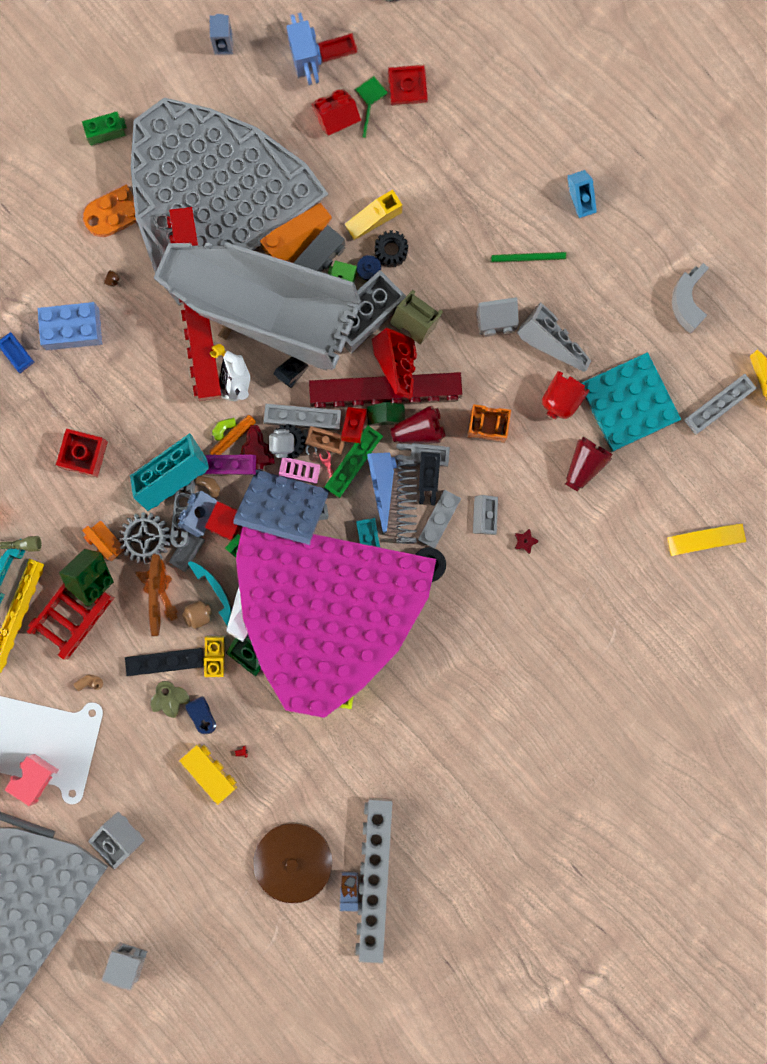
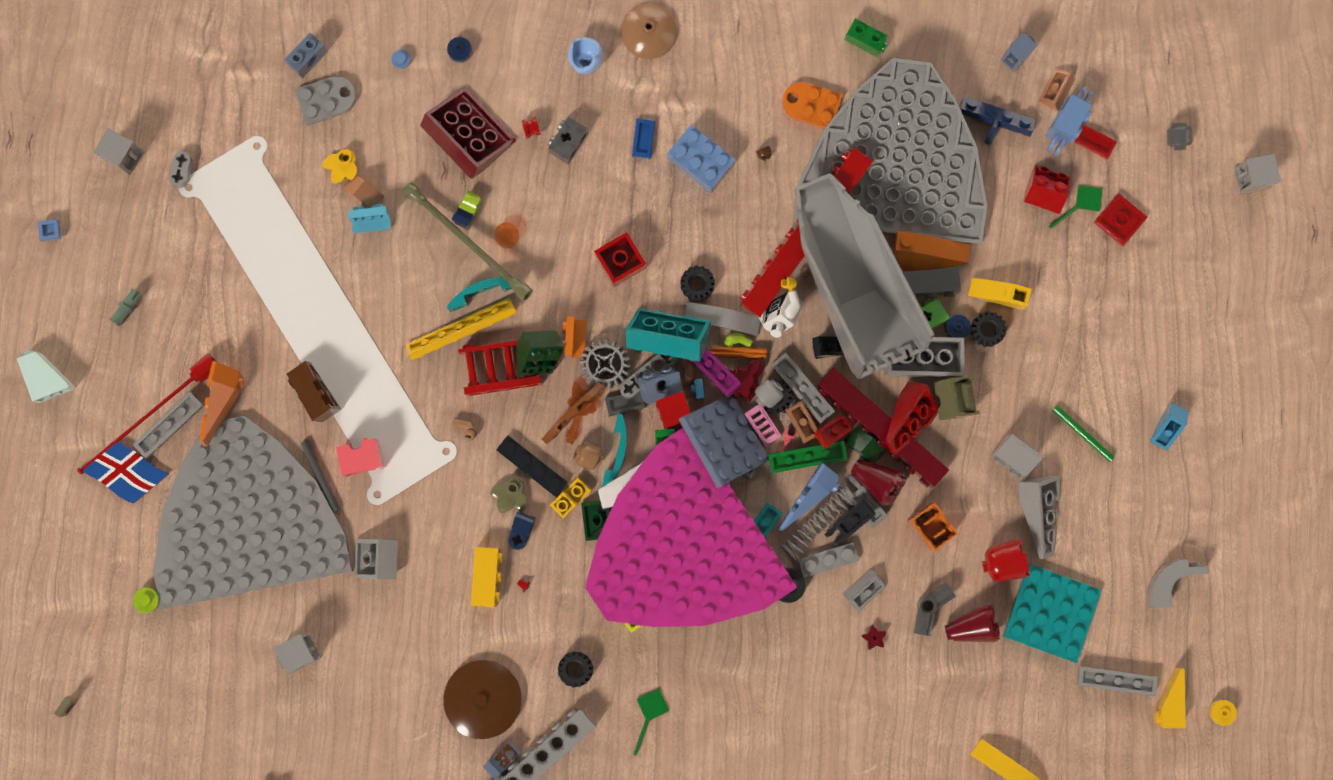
camera: 40 degrees right, 0 degrees up
(154, 405) = (700, 272): none -> black tyre
(198, 421) = (724, 318): none -> light grey slope
(228, 490) = (697, 389): none -> dark azure plate
(252, 95) = (997, 118): none -> dark blue plate
(274, 36) = (1057, 89): none -> nougat slope
(337, 786) = (587, 669): none -> black tyre
(418, 745) = (652, 707): none -> green piece
(542, 470) = (924, 618): none -> dark grey piece

